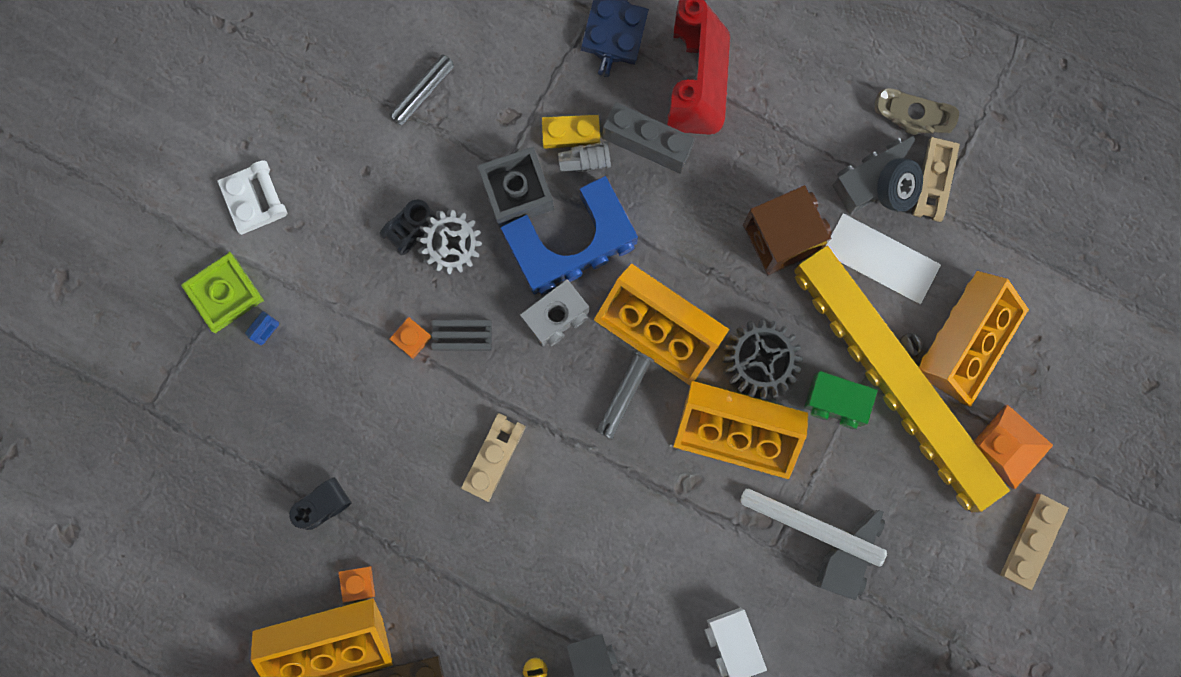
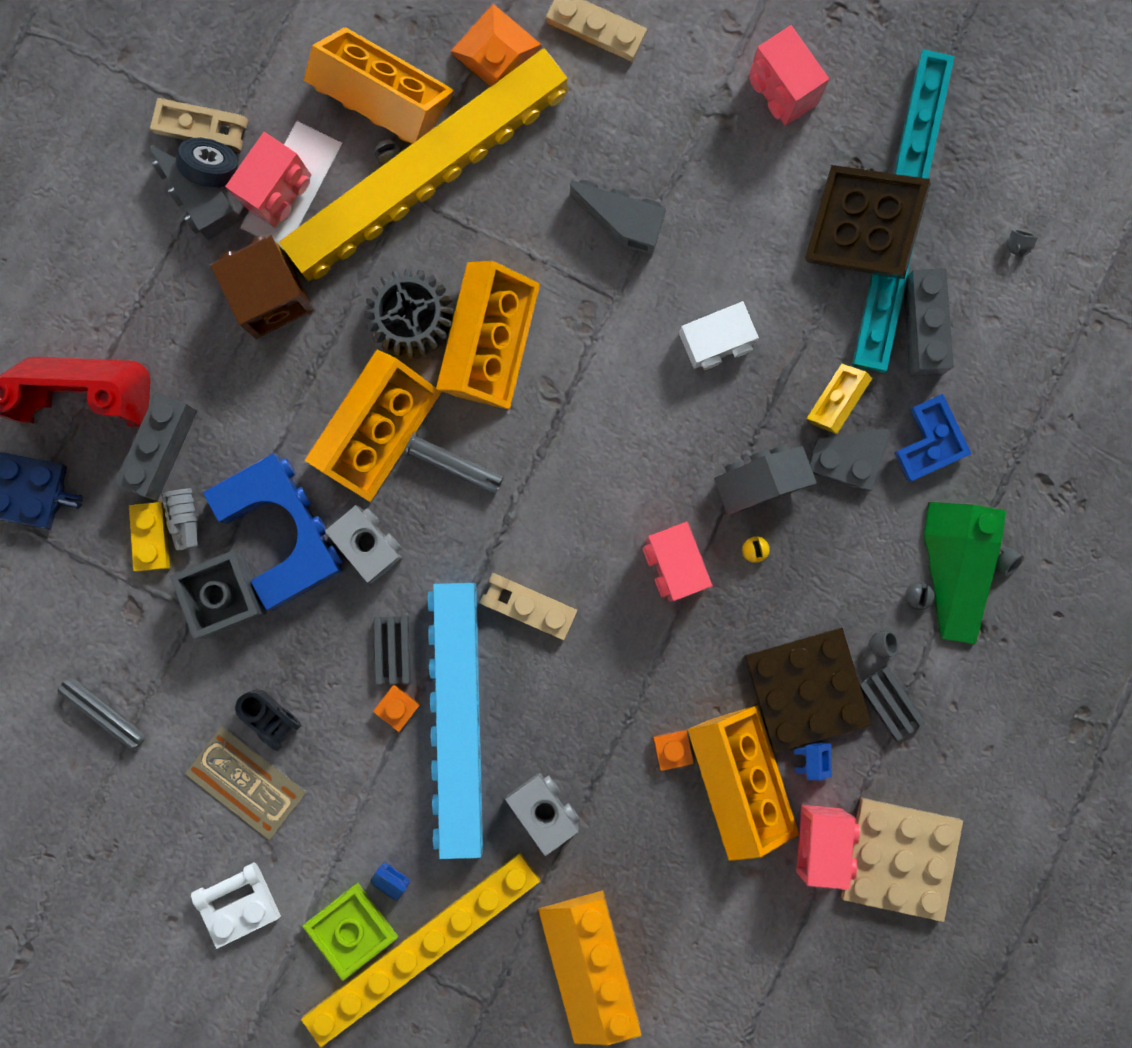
camera: 85 degrees left, 5 degrees up
(168, 500) = (590, 970): none -> light orange slope
(202, 354) = (420, 949): none -> yellow plate
(291, 465) = (546, 833): none -> light grey brick
(324, 502) = (585, 791): black piece -> none
(355, 207) = (245, 783): none -> sticker
(395, 390) = (456, 720): none -> medium azure brick
(459, 234) = (284, 683): light grey gear -> none
(524, 595) = (676, 562): none -> coral brick
(814, 527) = (591, 254): white axle -> none
(840, 400) = (452, 227): green brick -> none
(883, 239) = (269, 180): none -> coral brick
(936, 117) = (125, 122): dark tan piece -> none

